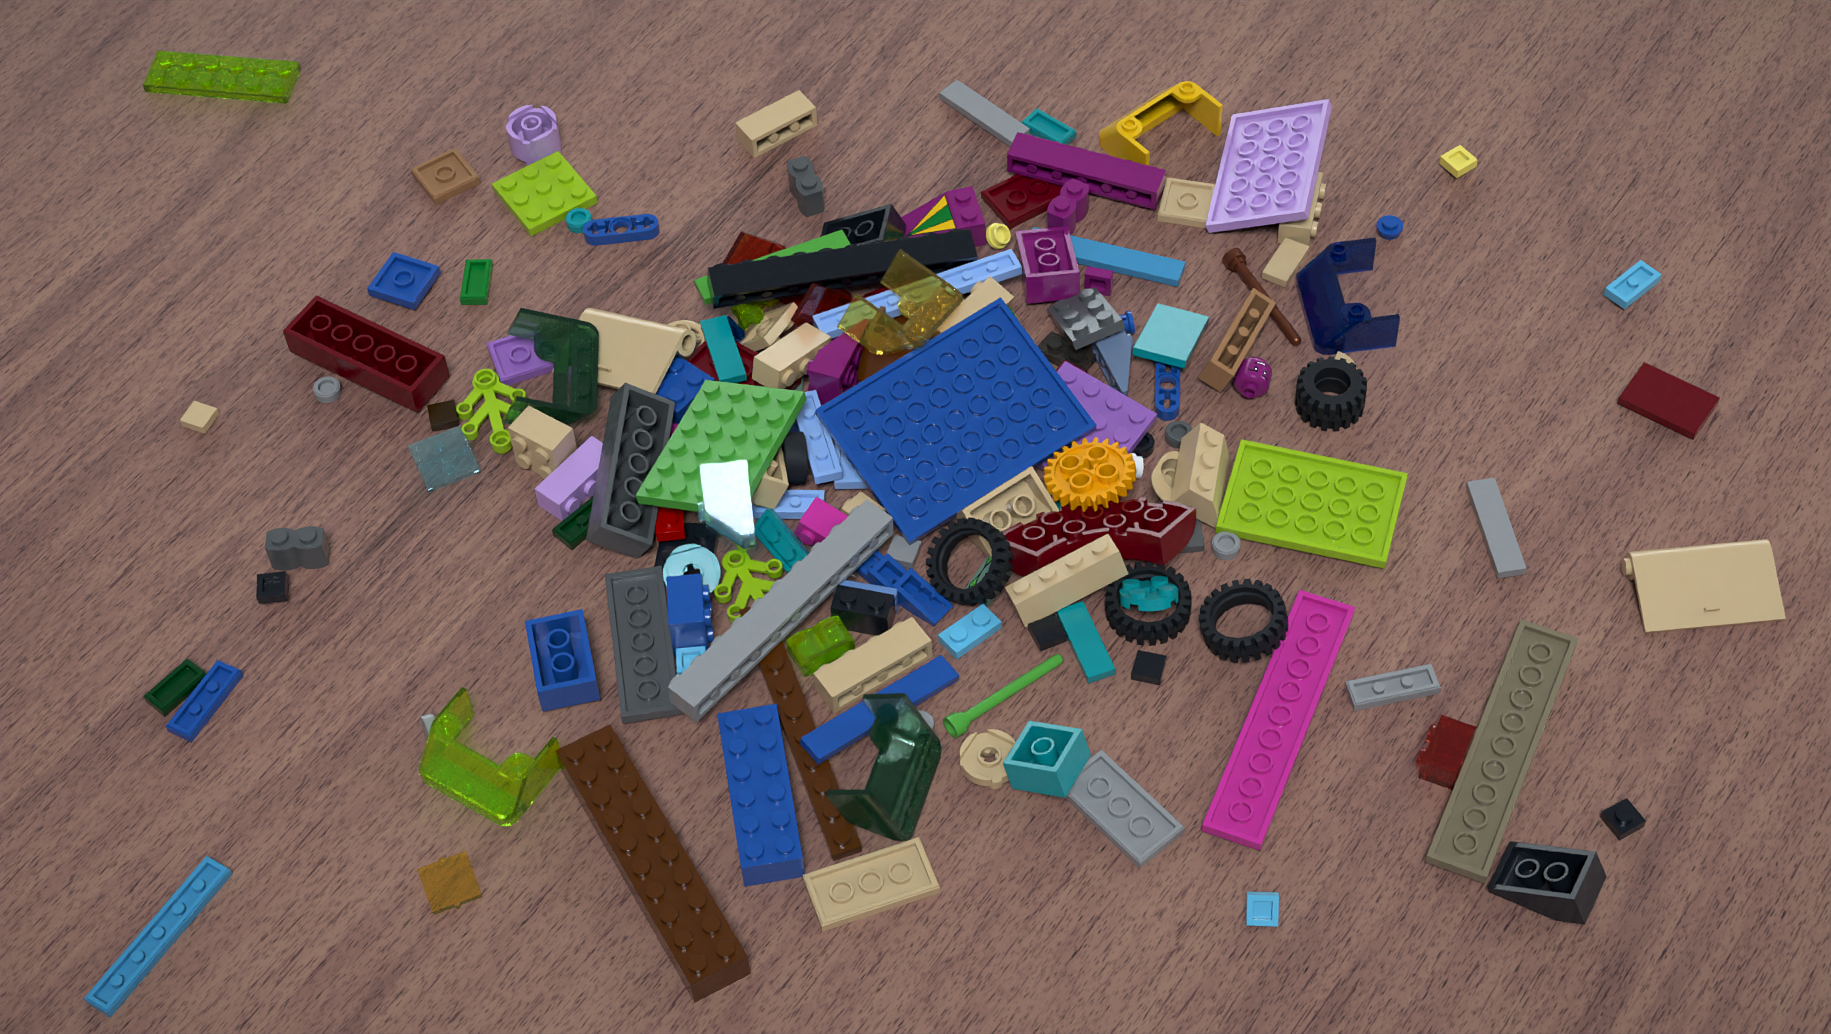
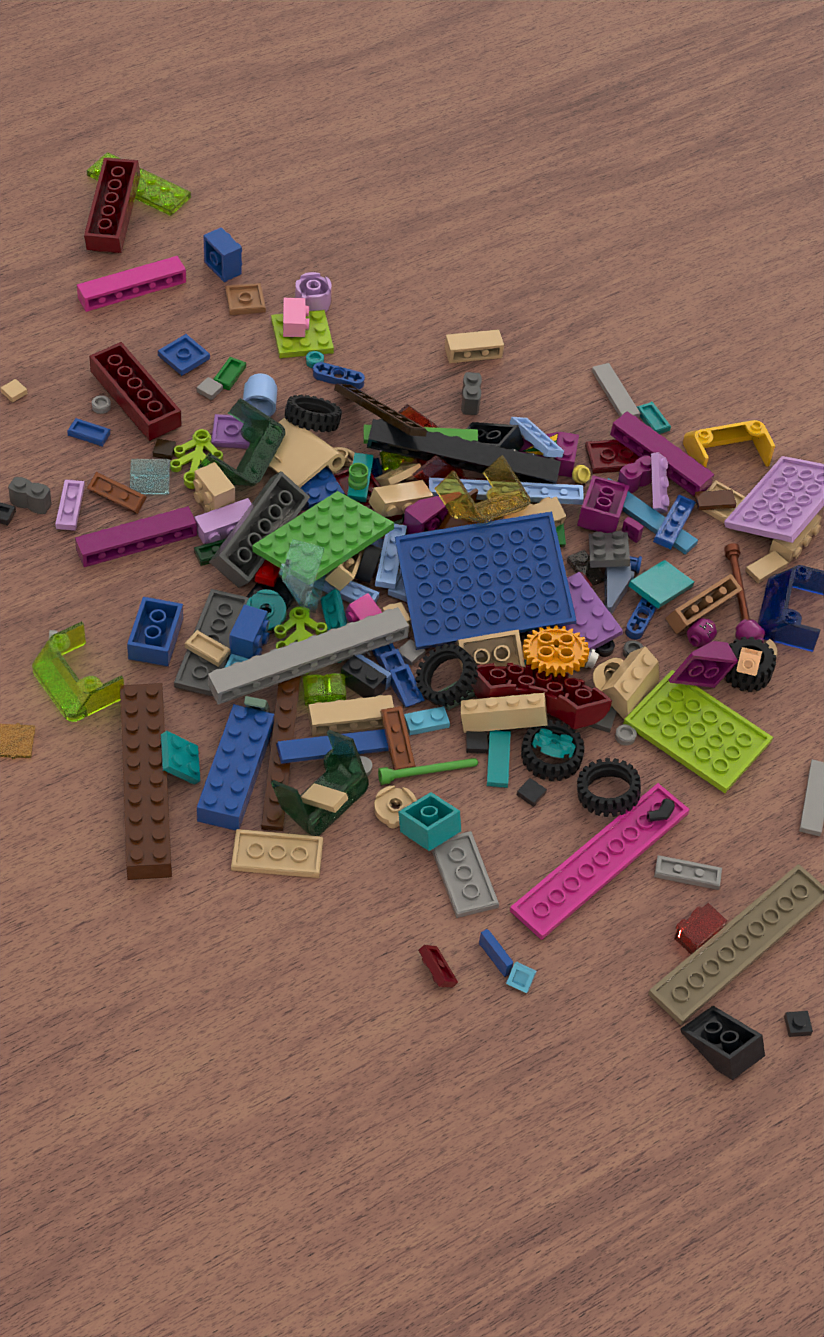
camera: 15 degrees right, 0 degrees up
(206, 118) = (112, 205): none -> dark red brick
(283, 213) = (131, 283): none -> dark pink brick
(330, 432) = (88, 432): none -> blue tile
(357, 539) = (70, 505): none -> lavender plate
(388, 128) = (222, 254): none -> blue brick
(411, 498) = (116, 492): none -> dark orange tile
(461, 312) = (209, 388): none -> light grey tile
(468, 546) = (136, 536): none -> magenta brick
(528, 174) = (295, 317): none -> bright pink brick
(536, 290) = (261, 393): none -> light blue piece
(618, 291) = (313, 413): none -> black tyre
(642, 654) = (207, 648): none -> tan tile
(683, 812) = (180, 757): none -> teal plate
(708, 252) = (380, 410): none -> dark brown tile
(723, 350) = (358, 476): none -> bright green wheel
(747, 700) = (256, 703): none -> sand green tile
(900, 785) = (324, 798): none -> tan tile
(922, 210) = (537, 437): none -> light blue plate
(948, 669) = (397, 738): none -> dark orange tile
(1104, 207) = (659, 482): none -> lavender plate
(1143, 935) = (438, 966): none -> dark red plate
(1145, 250) = (674, 522): none -> blue tile
(1181, 202) = (715, 500): none -> reddish brown tile
(1214, 891) = (496, 952): none -> blue tile
(1286, 416) = (705, 665): none -> magenta slope
(1309, 350) = (749, 628): none -> magenta head
(1327, 625) = (664, 811): none -> black arm
(1334, 389) = (749, 661): none -> light nougat bracket

